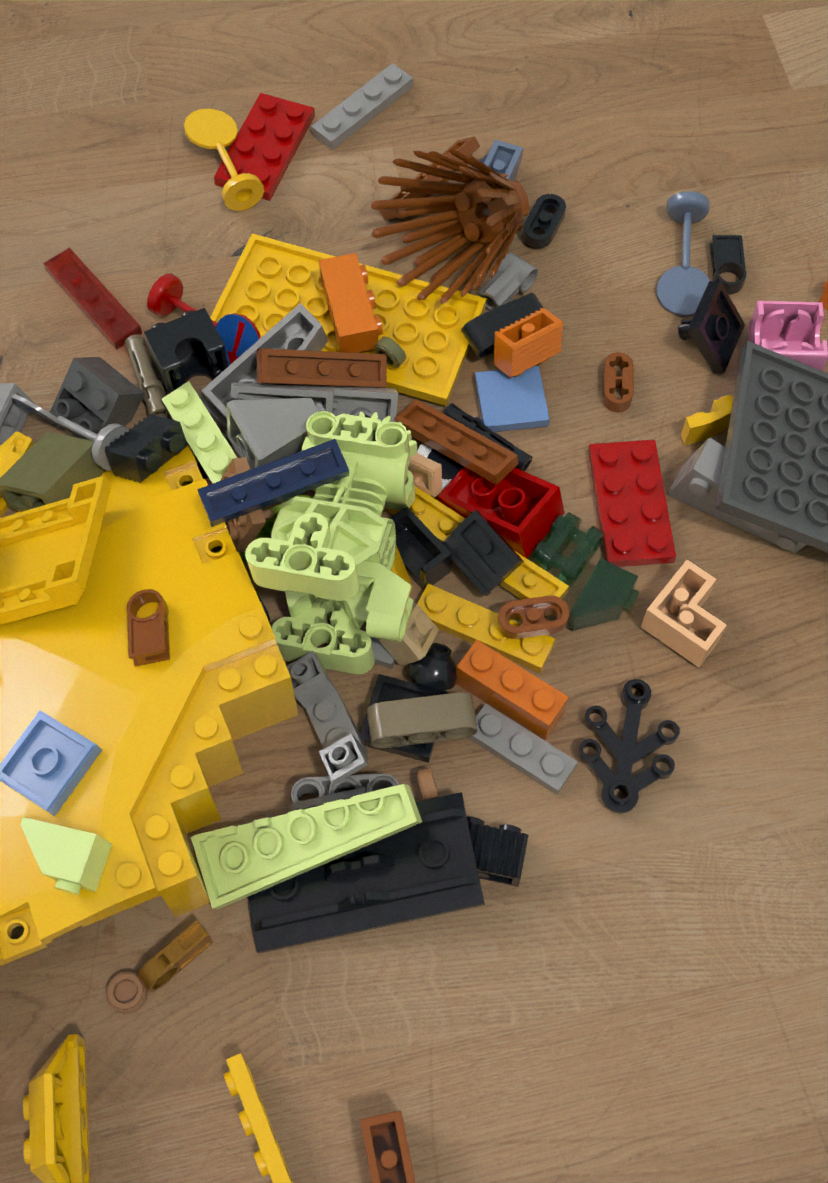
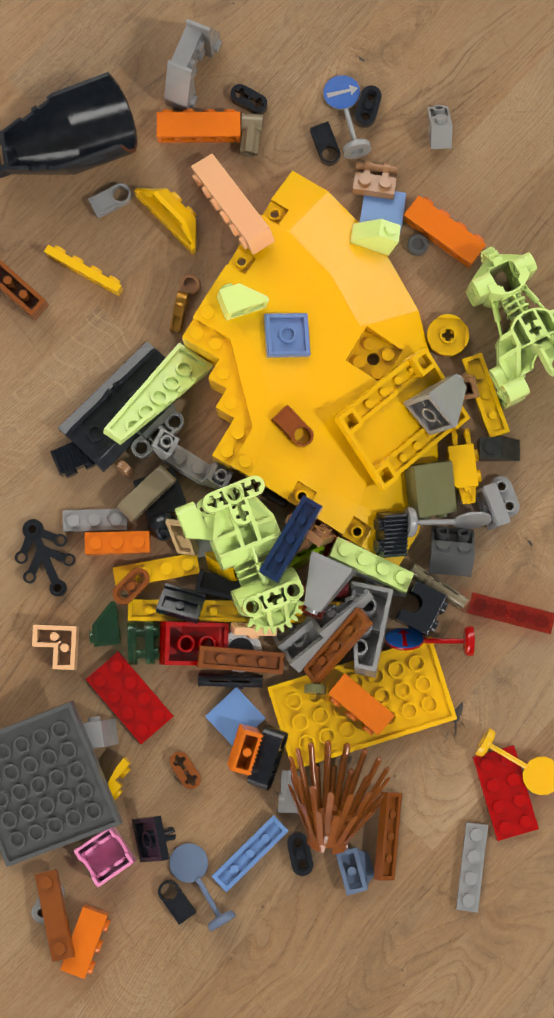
camera: 145 degrees right, 20 degrees up
(603, 254) = (249, 853): none -> medium blue plate

